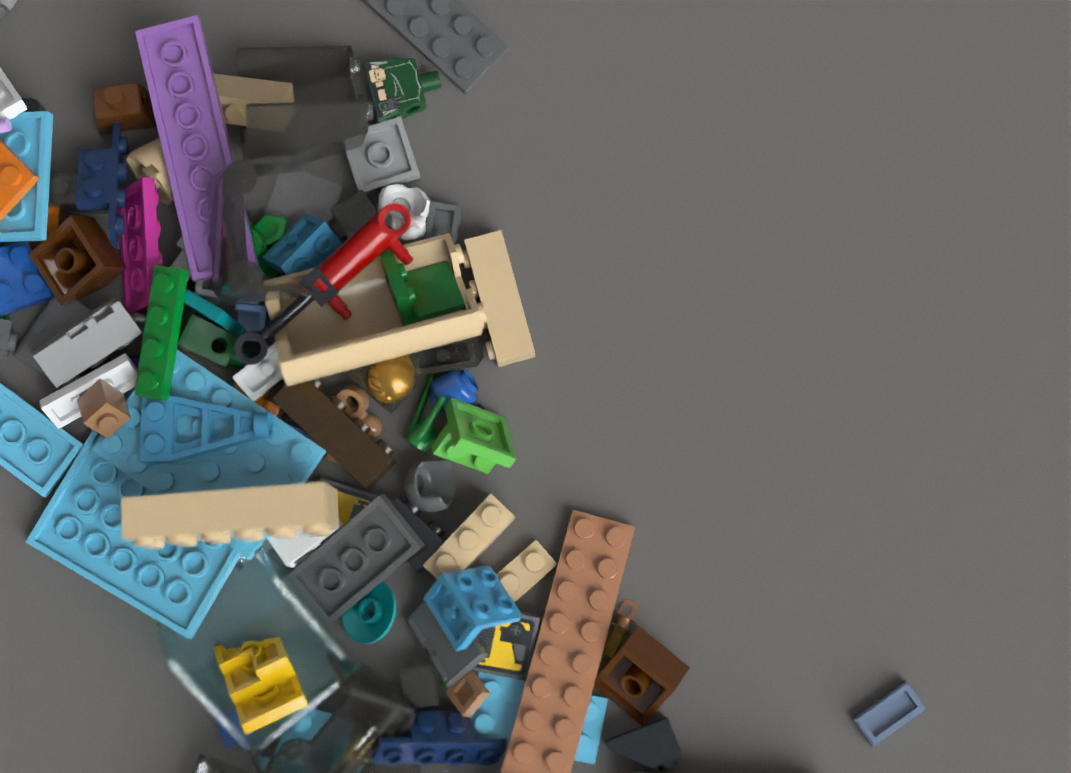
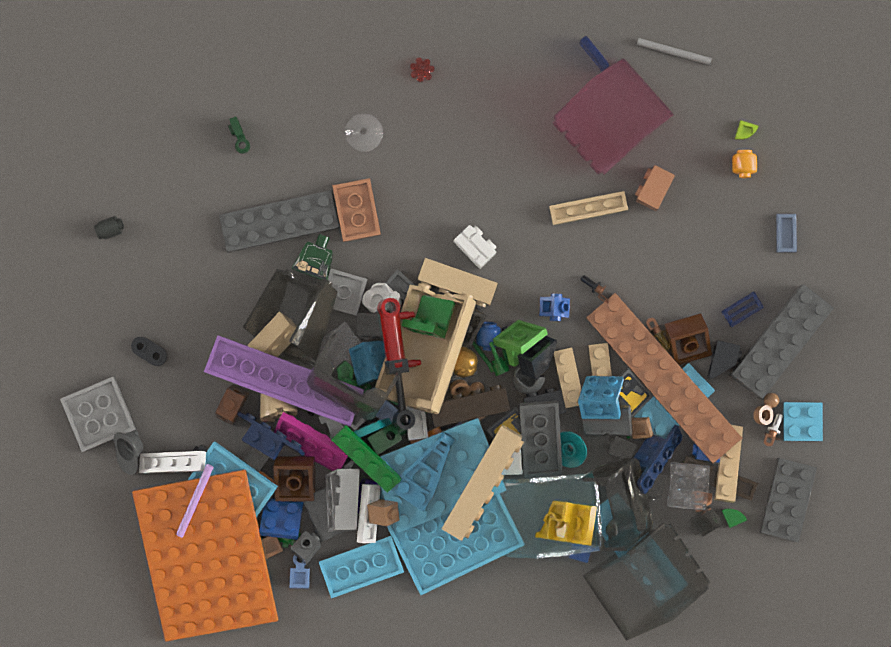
camera: 55 degrees left, 5 degrees up
(467, 476) = (537, 358): none -> black slope
(504, 98) = (356, 210): none -> nougat plate
(555, 454) = (554, 307): none -> blue brick
(565, 289) = (475, 246): none -> white brick
(617, 54) = (364, 142): none -> clear dish
(624, 494) = (595, 286): none -> piece
(712, 713) = (728, 317): none -> clear blue tile
(727, 409) = (588, 208): none -> tan plate
(757, 59) = (419, 72): none -> clear red plant
(820, 481) = (654, 188): none -> nougat brick
(877, 351) = (611, 116): none -> clear pink windscreen
(944, 585) = (744, 163): none -> light orange head
(946, 272) = (594, 53): none -> clear blue tile
(991, 555) = (745, 130): none -> lime tile
(1029, 380) = (674, 51): none -> light grey bar

